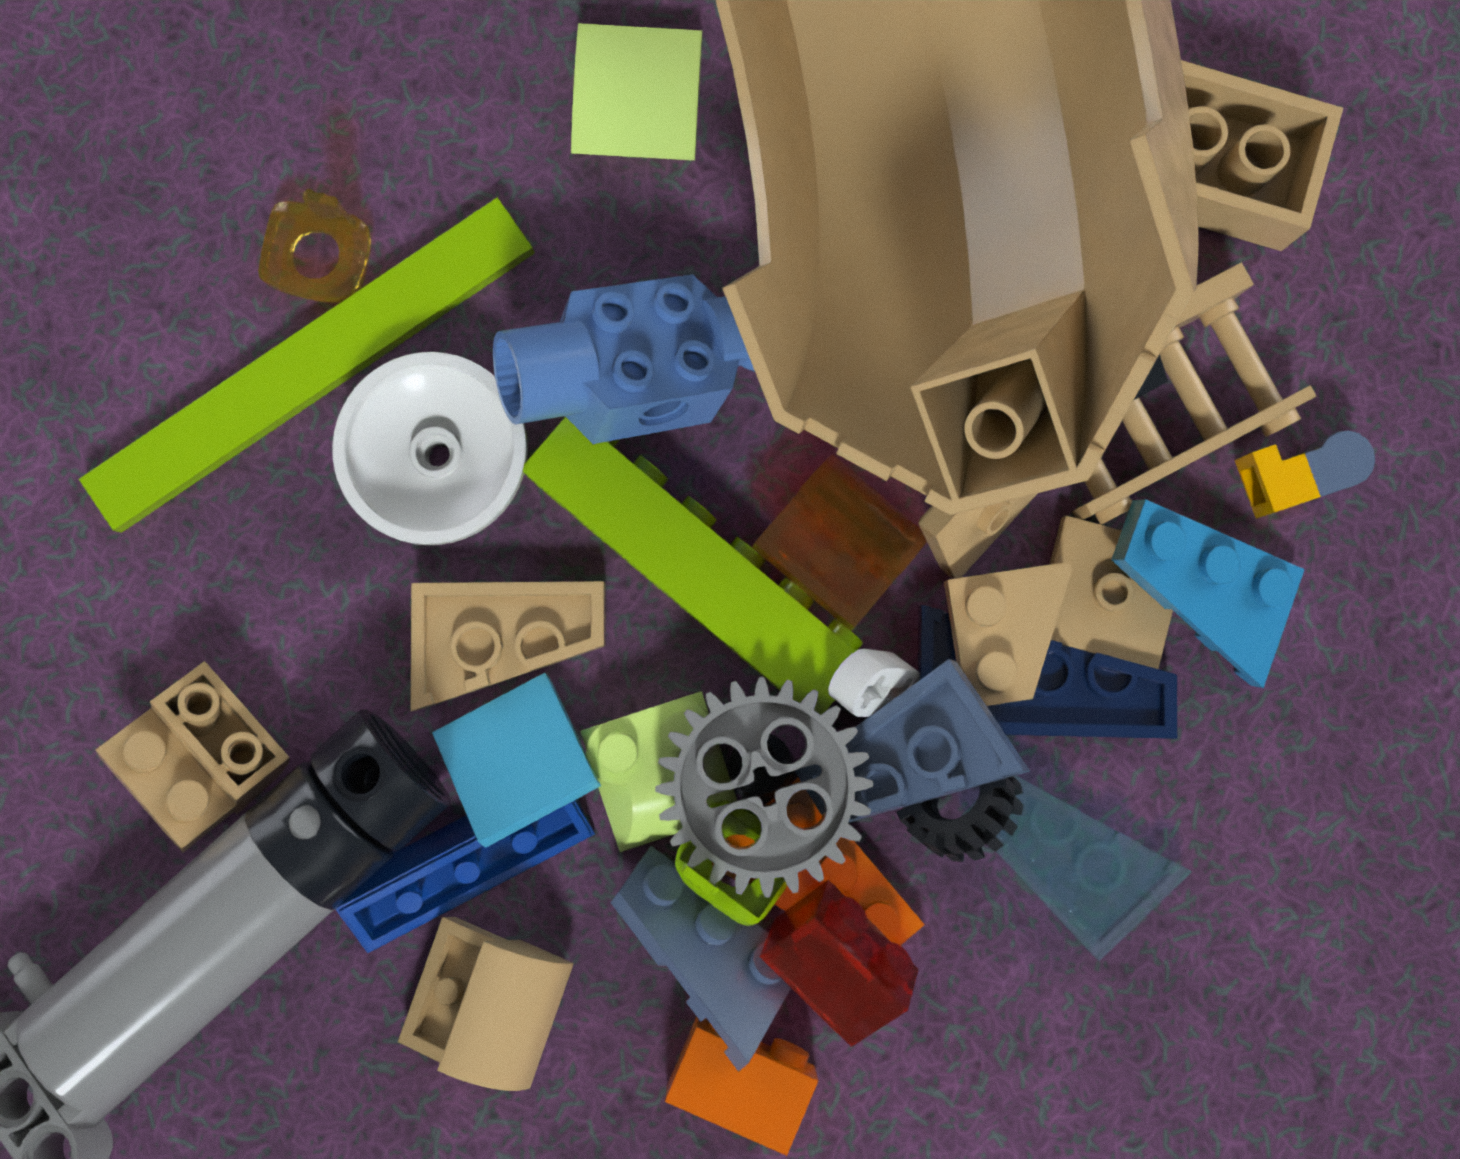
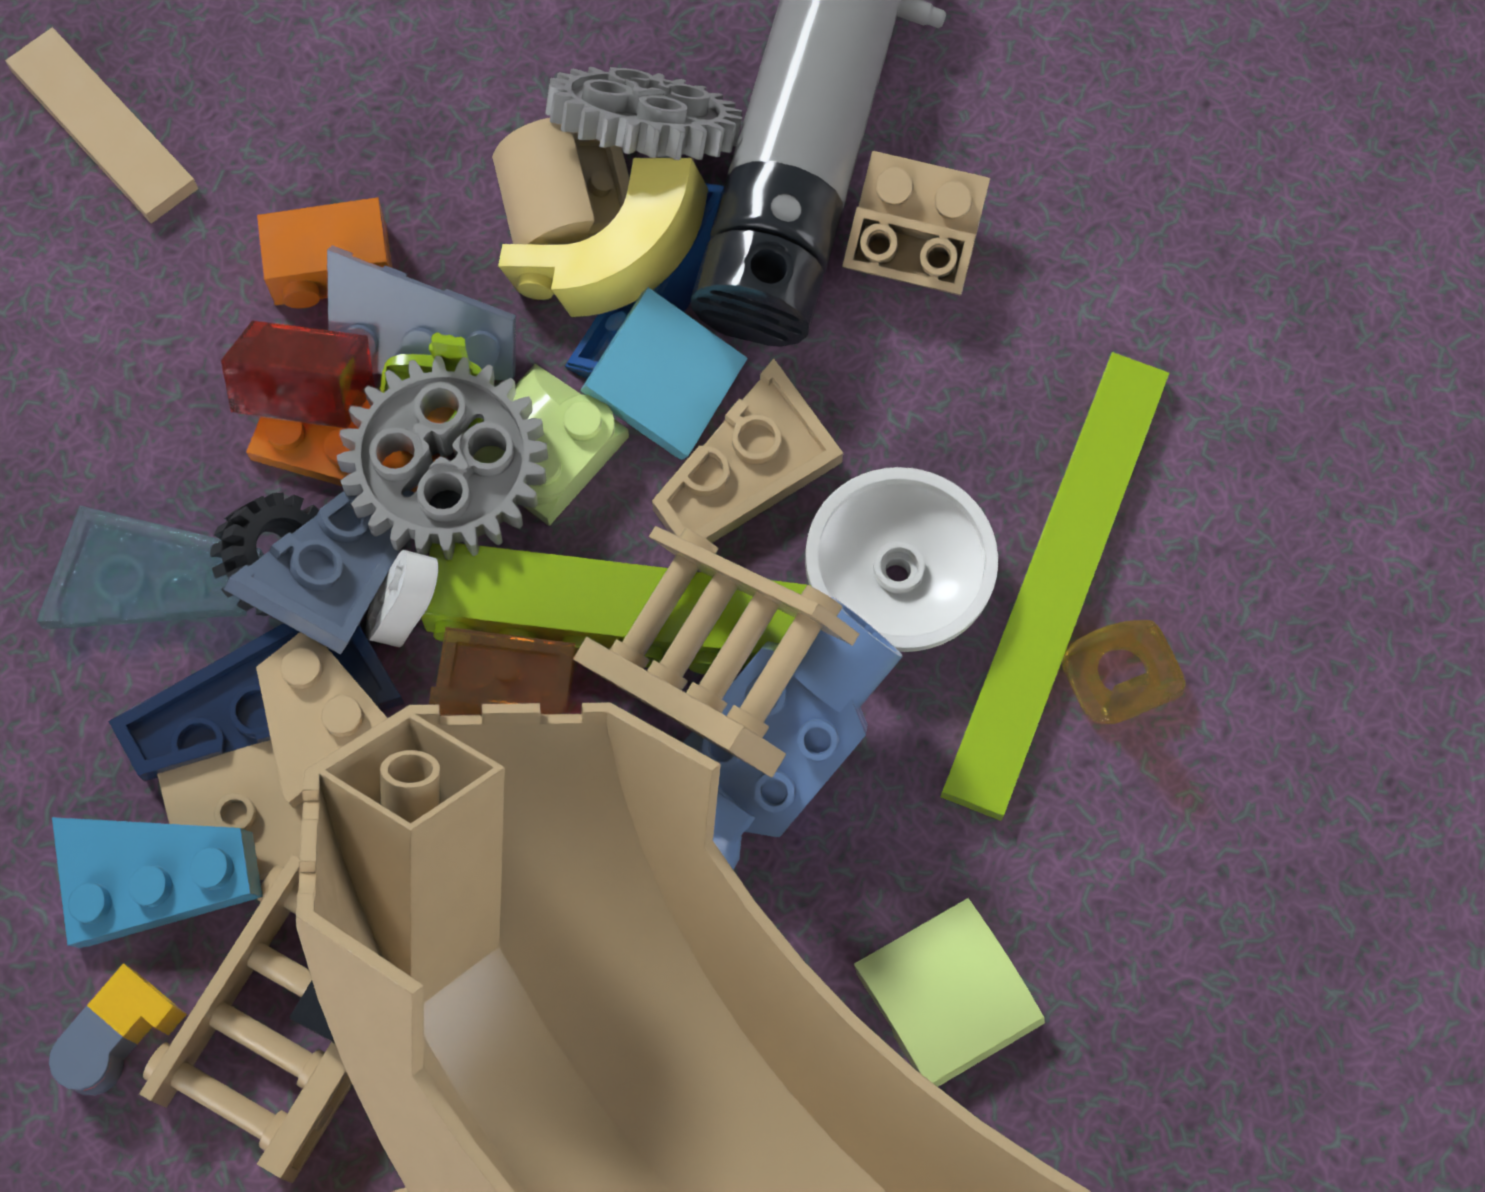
camera: 150 degrees right, 15 degrees down
(366, 1026) = (643, 113): none -> light grey gear
(466, 889) = (629, 254): none -> light yellow arch
(698, 386) = (702, 704): none -> tan fence

